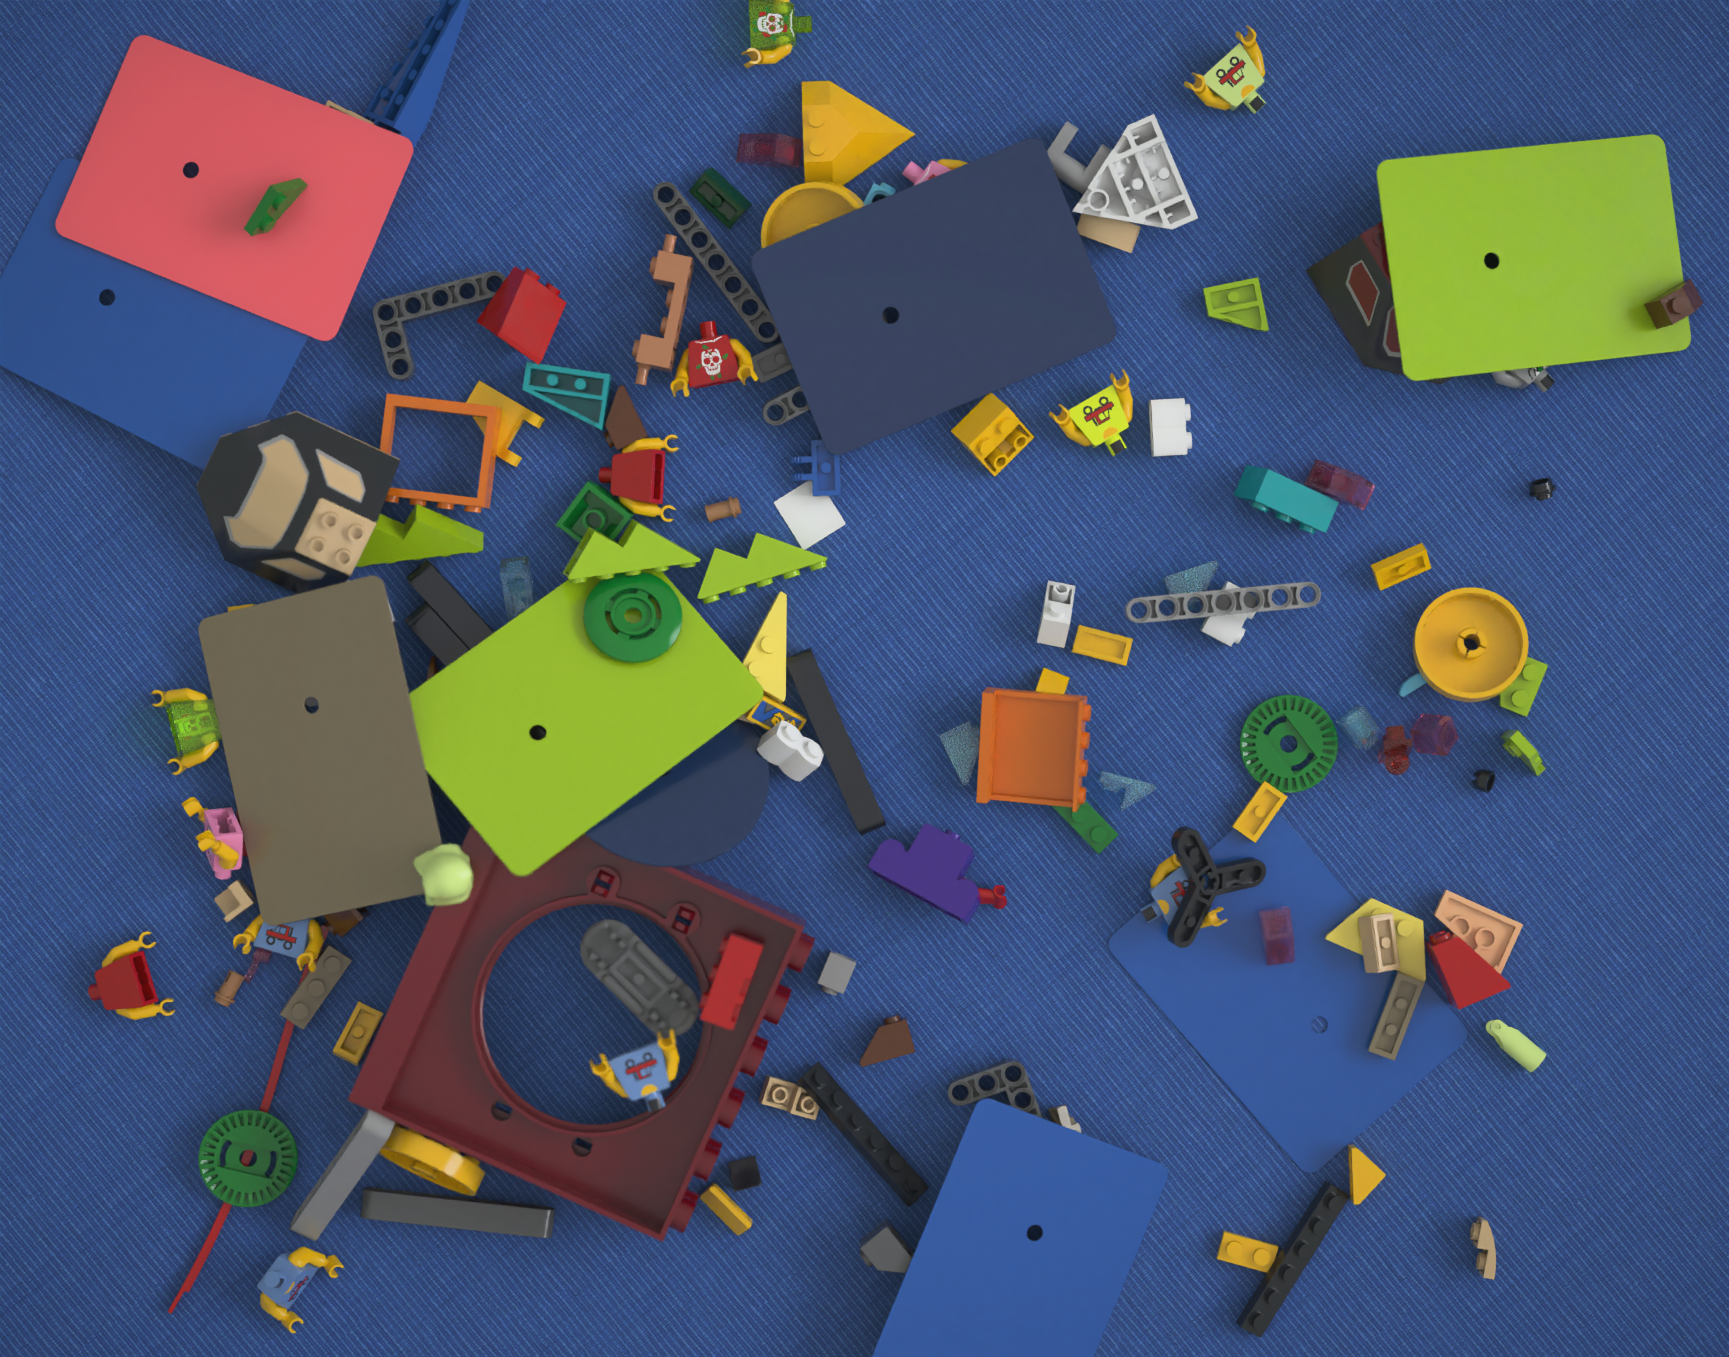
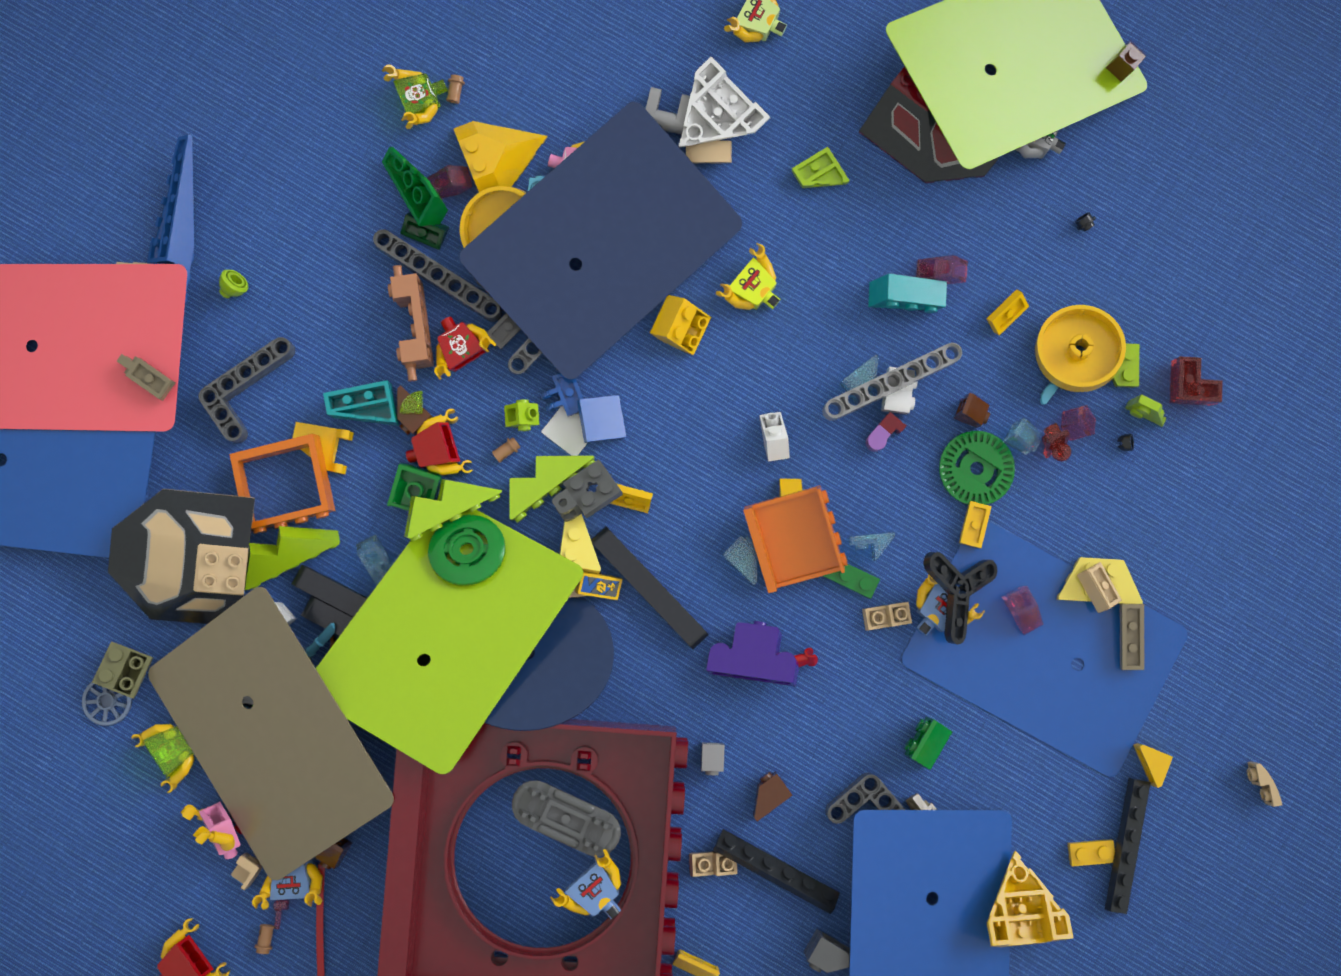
camera: 25 degrees left, 5 degrees down
(136, 636) = (106, 701): none -> sand blue wheel
(171, 609) = (122, 670): none -> olive slope
(273, 205) = (96, 345): green wing -> none
(315, 987) = (329, 913): dark tan plate -> none
(322, 266) = (147, 376): none -> dark tan hinge
(357, 1033) = (371, 937): yellow slope -> none
(422, 658) = (321, 640): none -> medium azure piece
(445, 875) = (389, 794): yellowish green piece -> none
(461, 181) = (232, 284): none -> lime brick
(524, 313) = (309, 359): red slope -> none
(630, 414) = (412, 403): none -> clear neon green tile
(728, 151) = (415, 189): none -> green wedge
(730, 981) = (635, 795): red wedge -> none
(745, 1173) = (700, 934): black slope -> none
(763, 475) = (521, 415): none -> lime brick
(787, 605) = (578, 500): none -> dark grey plate
(790, 750) = (618, 606): white brick -> none
(822, 32) = (455, 87): none -> medium nougat pin
(851, 624) = (634, 499): none -> yellow plate
(853, 515) = (601, 419): none -> tile
(1100, 1050) = (927, 742): none -> green slope
(1102, 645) = (815, 447): yellow tile -> none
(1110, 882) = (887, 616): none -> tan slope
(1139, 1288) = (1025, 910): none -> yellow wedge
(1168, 427) = (804, 274): white brick -> none
(1183, 661) = (879, 436): none -> leg
(1309, 673) = (972, 411): none -> reddish brown slope
(1462, 970) = (1168, 585): red slope -> none
(1481, 928) = (1166, 550): light nougat wing -> none
(1516, 1045) = (1227, 625): yellowish green piece -> none
(1584, 739) = (1187, 385): none -> clear red brick

